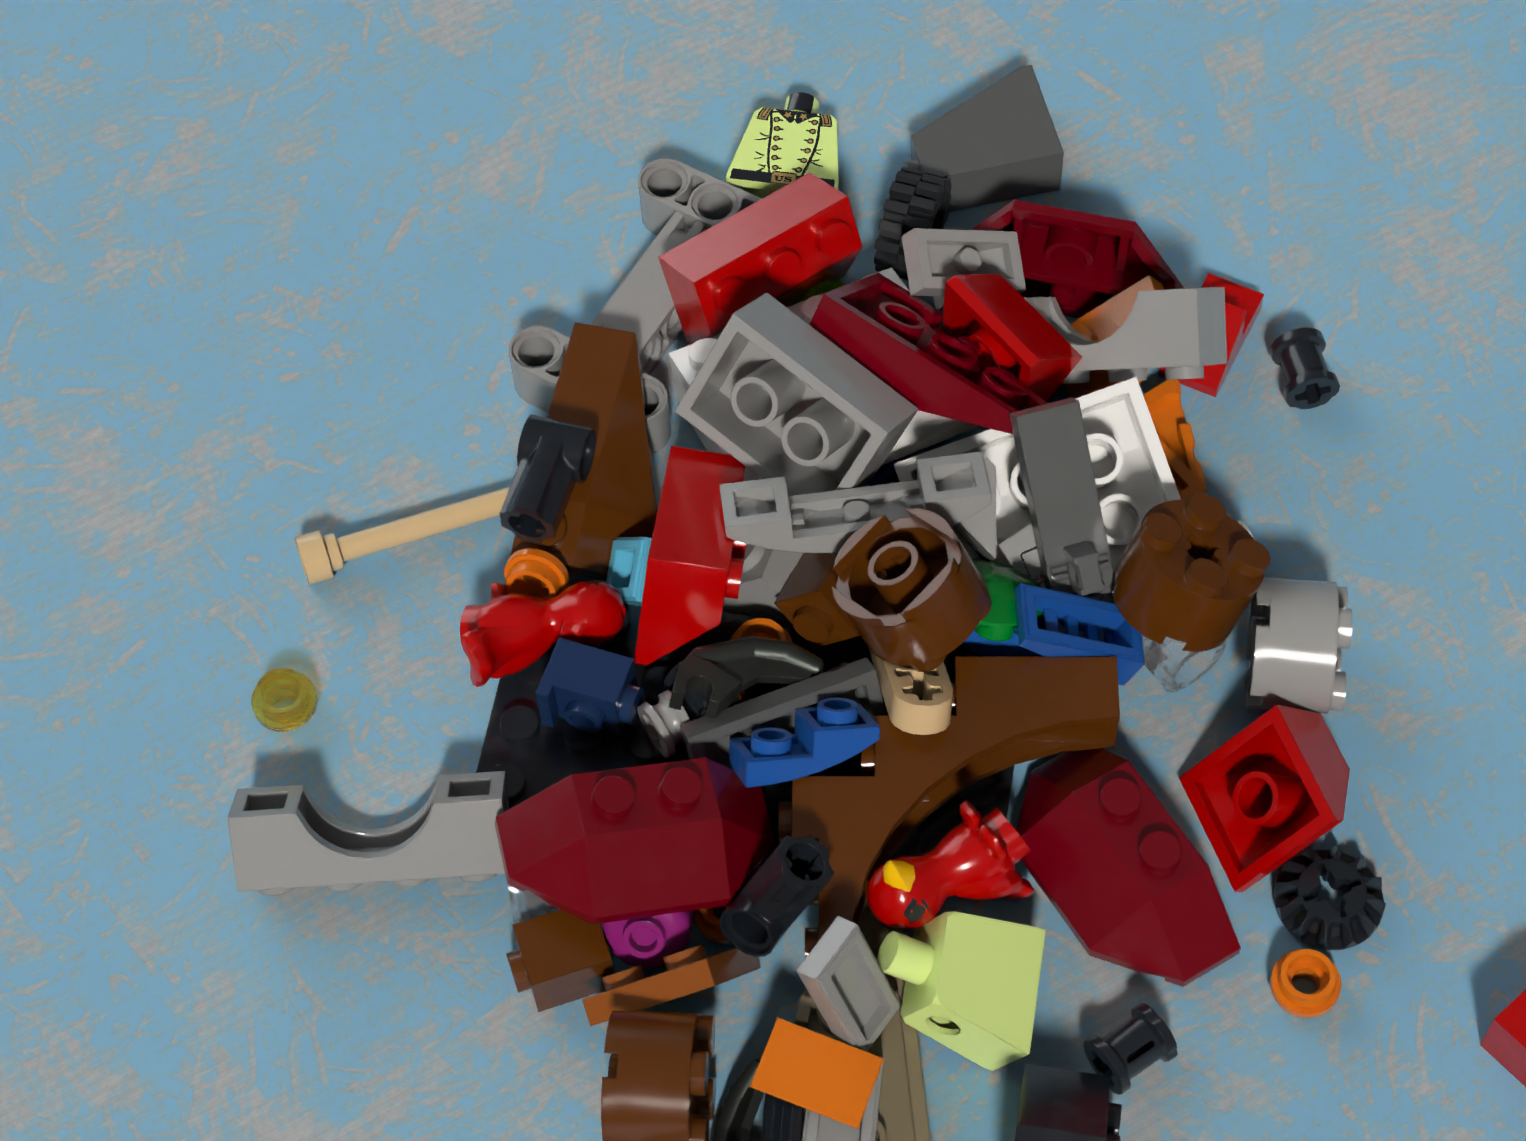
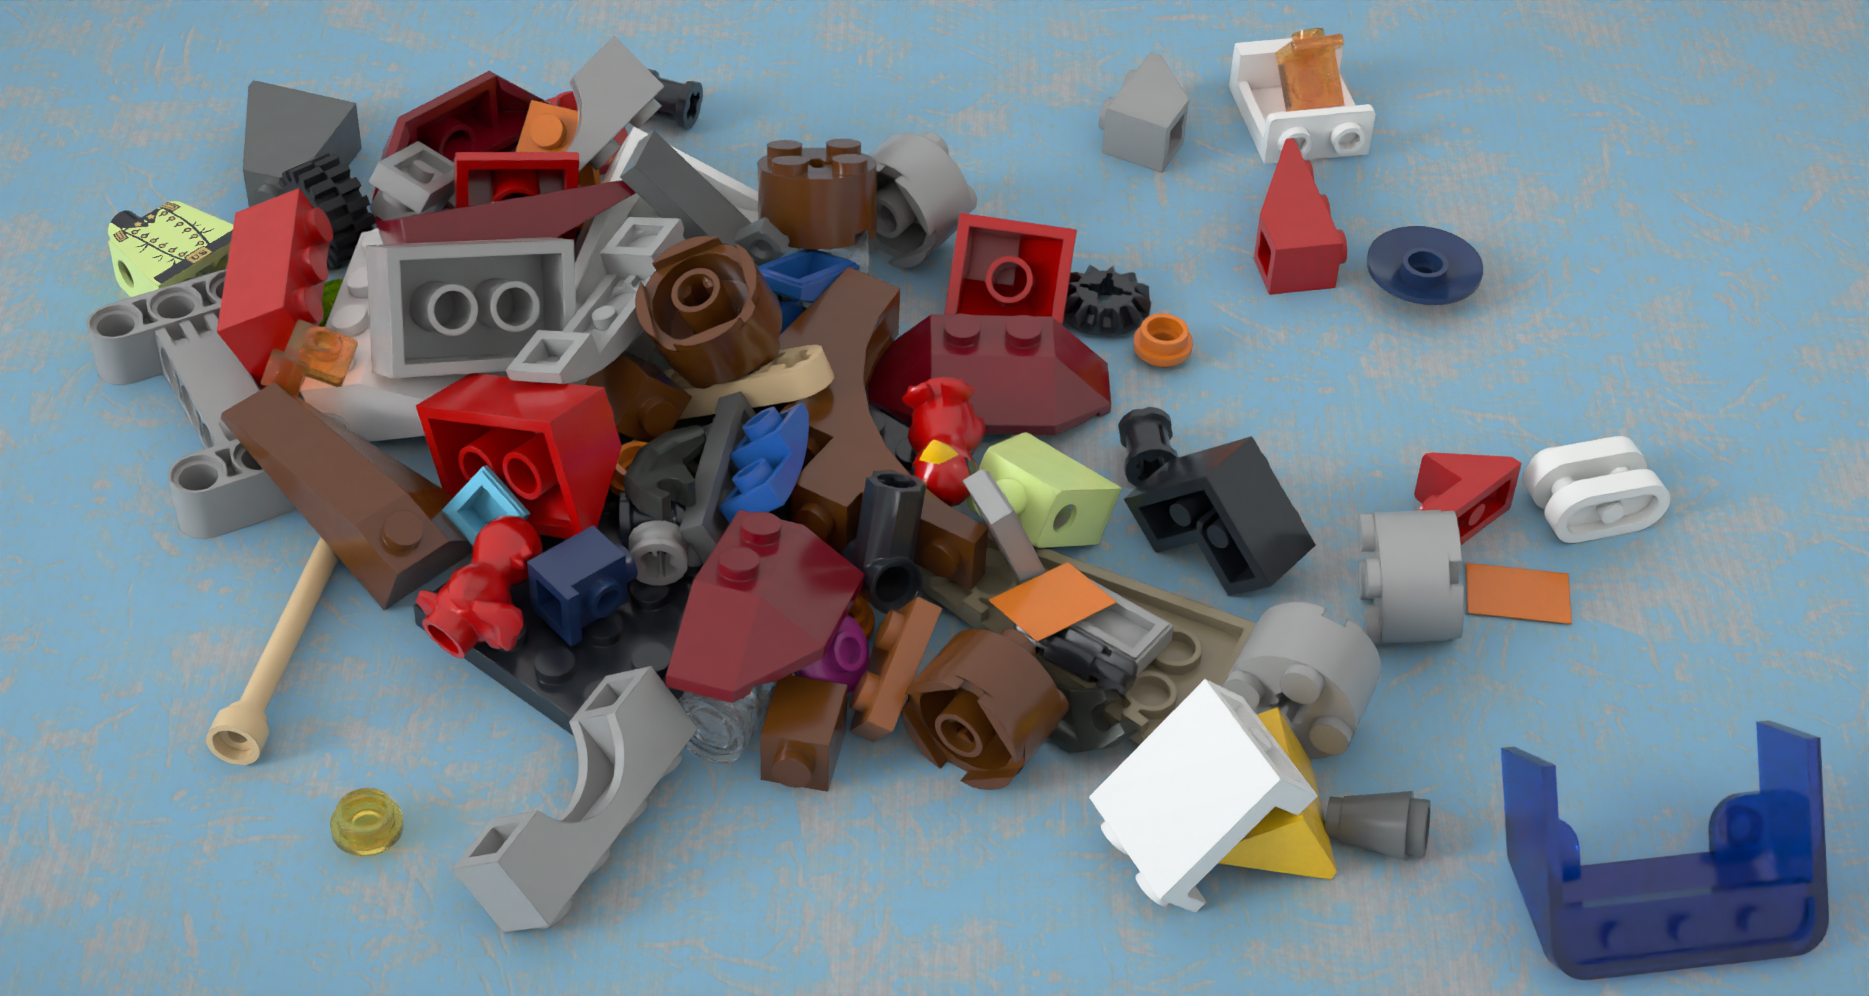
camera: 65 degrees left, 15 degrees down
(535, 574) = (433, 563): orange plate -> none
(549, 464) = (363, 478): black piece -> none
(676, 339) = (313, 354): none -> clear orange bracket

